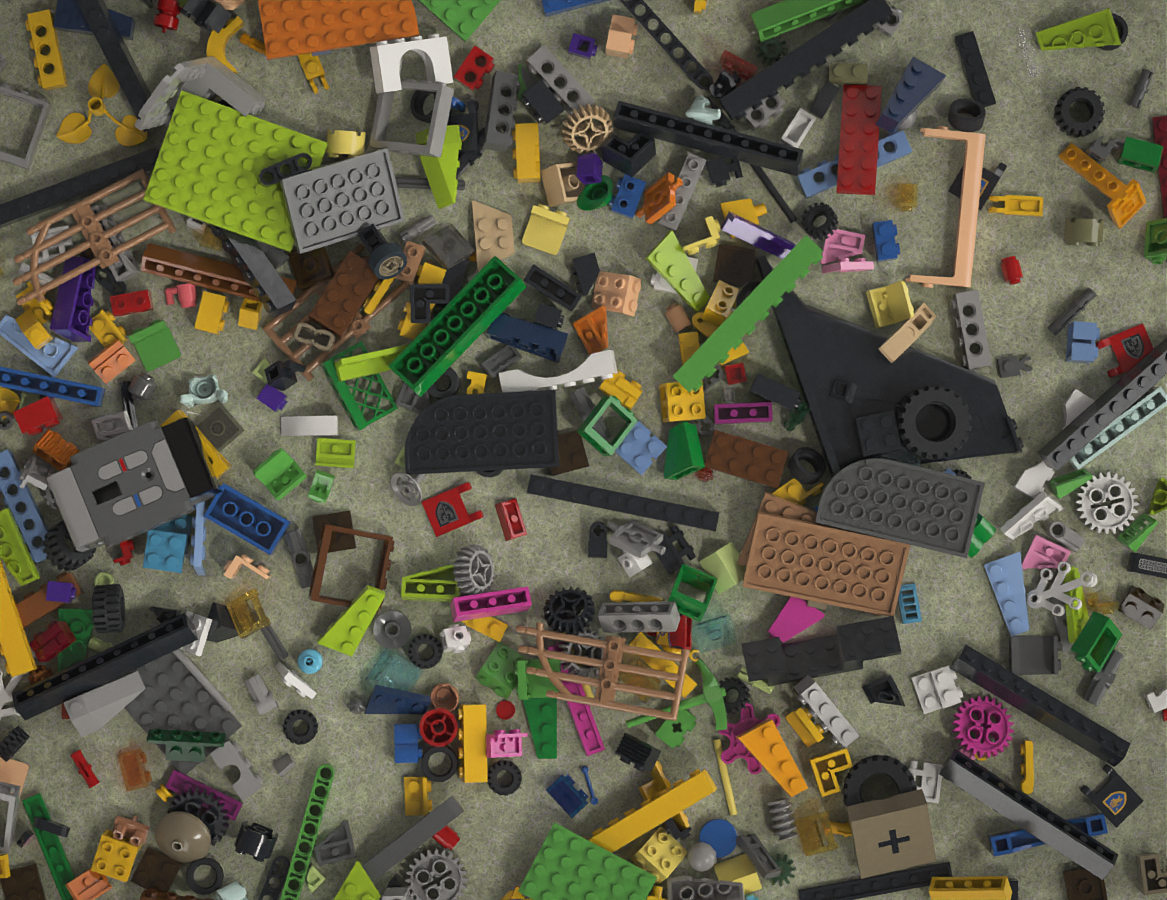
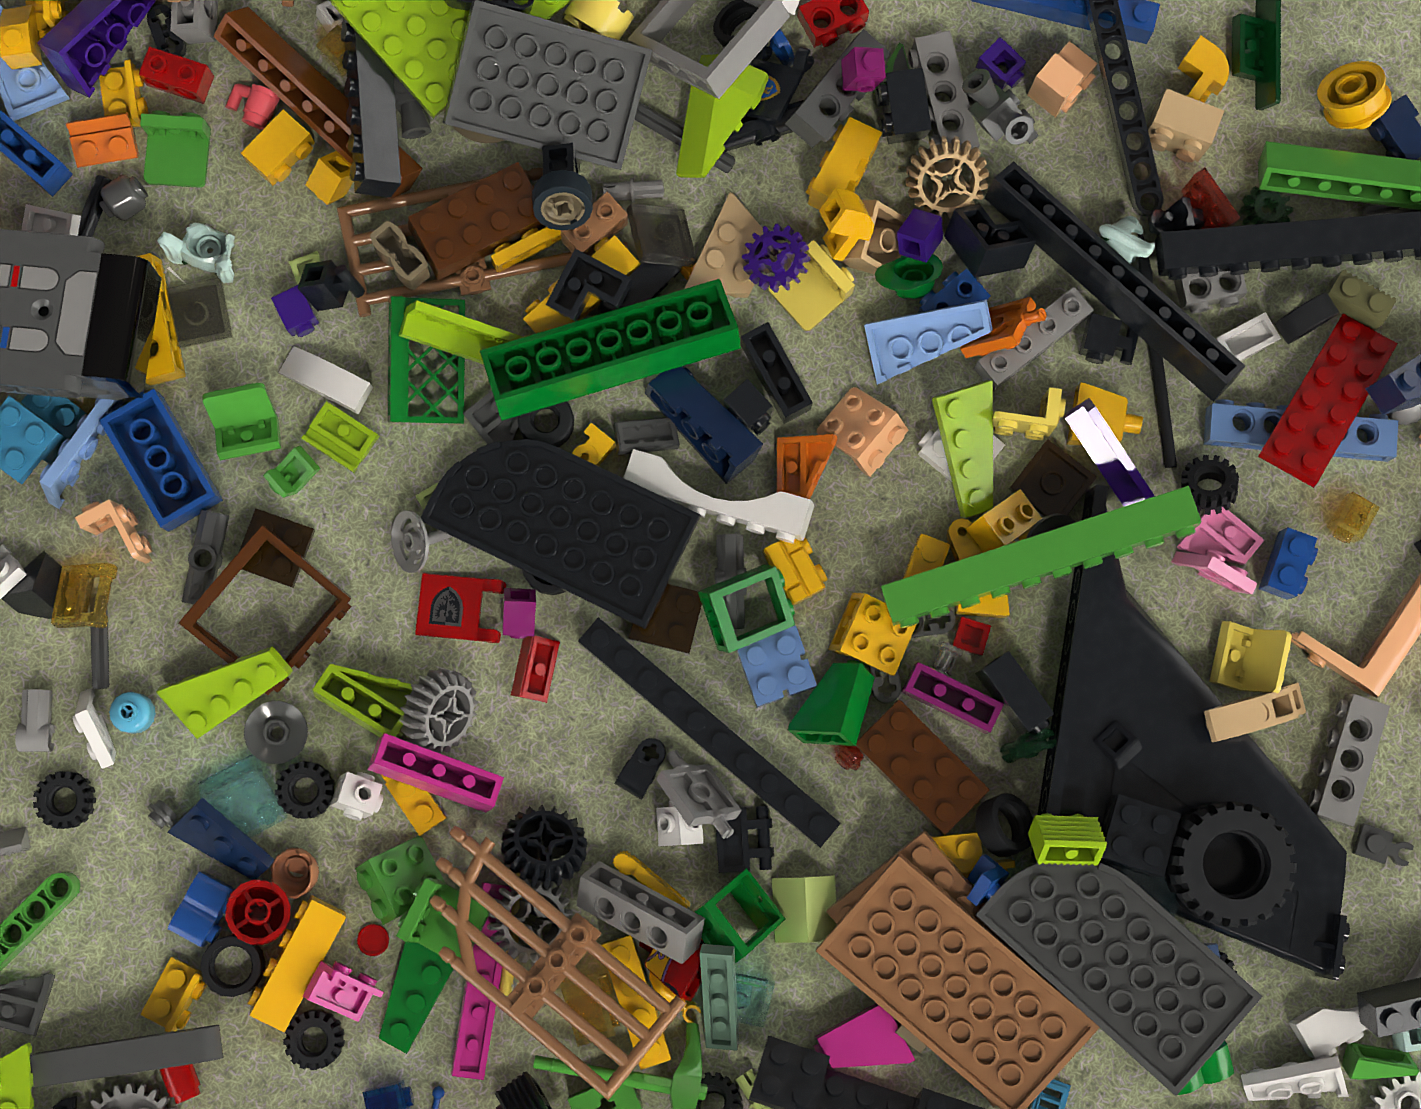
camera: 25 degrees right, 5 degrees down
(311, 267) = (453, 157): dark brown plate -> none
(486, 494) = (519, 612): none -> magenta brick
(509, 97) = (863, 69): none -> magenta brick
(511, 221) = (789, 258): none -> dark purple gear
(546, 187) = (846, 222): none -> yellow brick
(587, 271) = (838, 376): black slope -> none
(595, 77) = (997, 110): none -> dark grey brick
(620, 226) = (915, 338): none -> light blue wing
(677, 317) = (931, 511): medium nougat brick -> none
(700, 29) = (1183, 125): none -> tan brick
(705, 638) = (719, 996): none -> sand green plate
(811, 499) = (987, 878): none -> blue bracket
(841, 456) = (1067, 839): none -> lime brick

